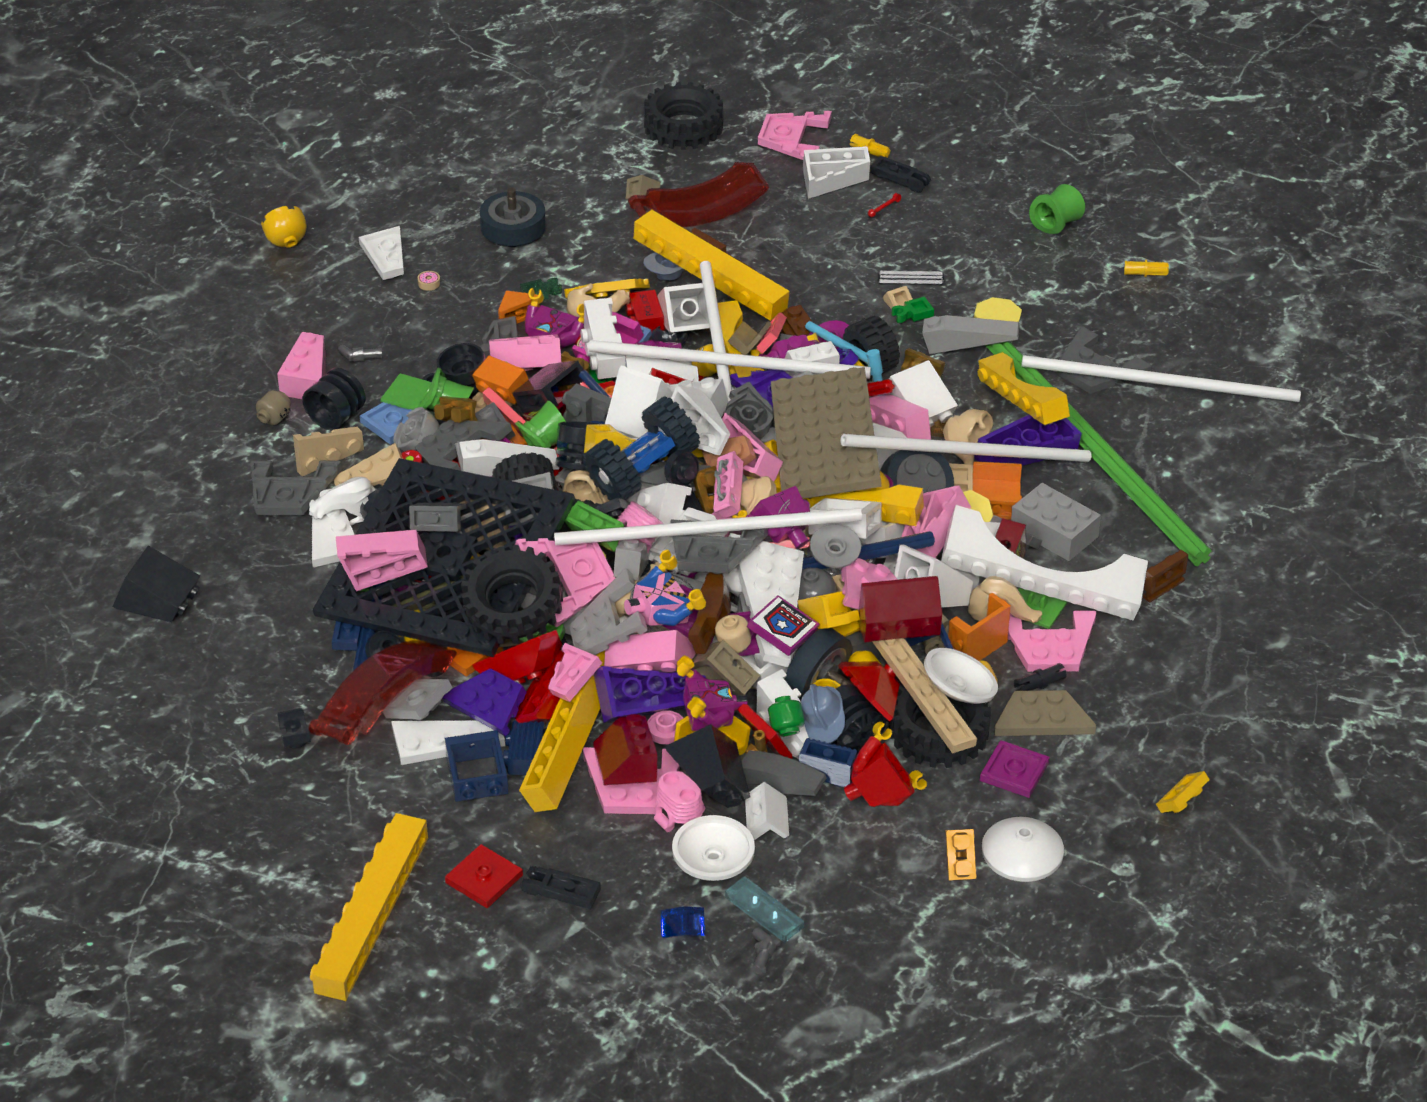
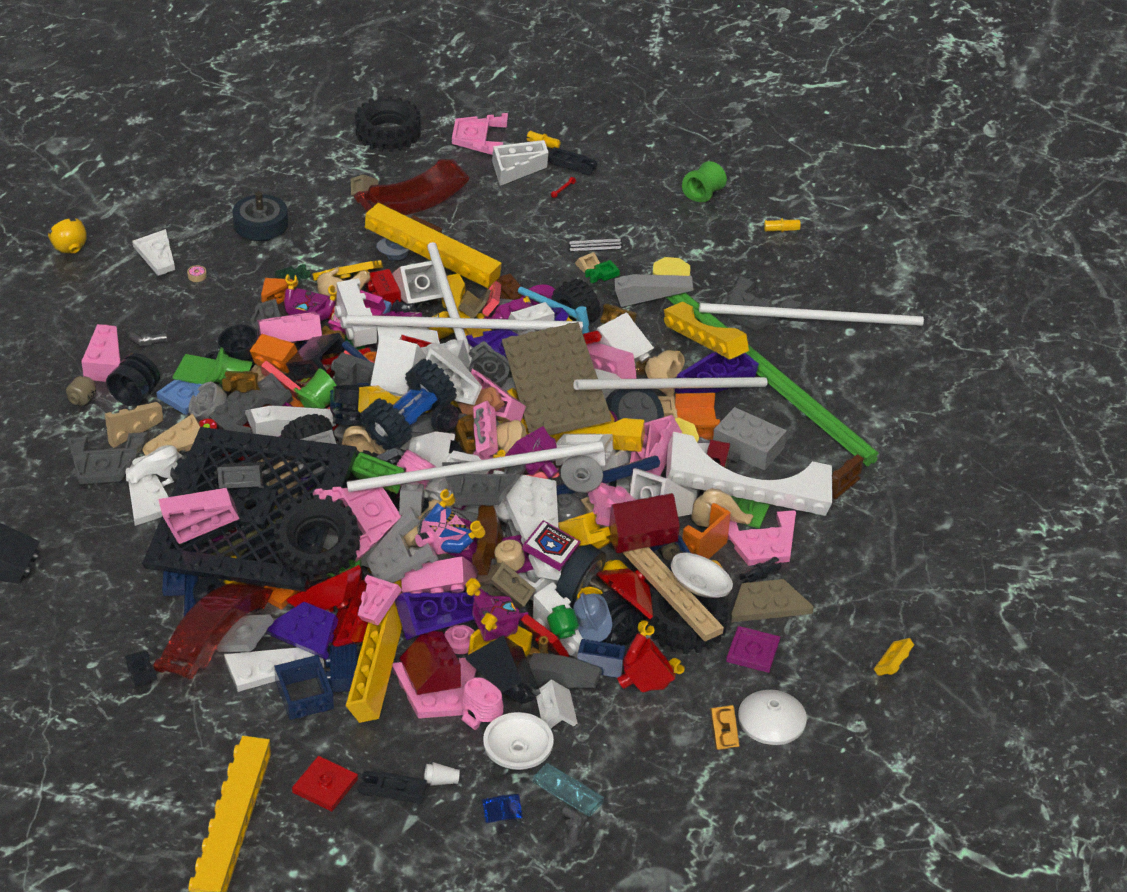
camera: 10 degrees left, 0 degrees up
(618, 878) = (440, 775): none -> white cone

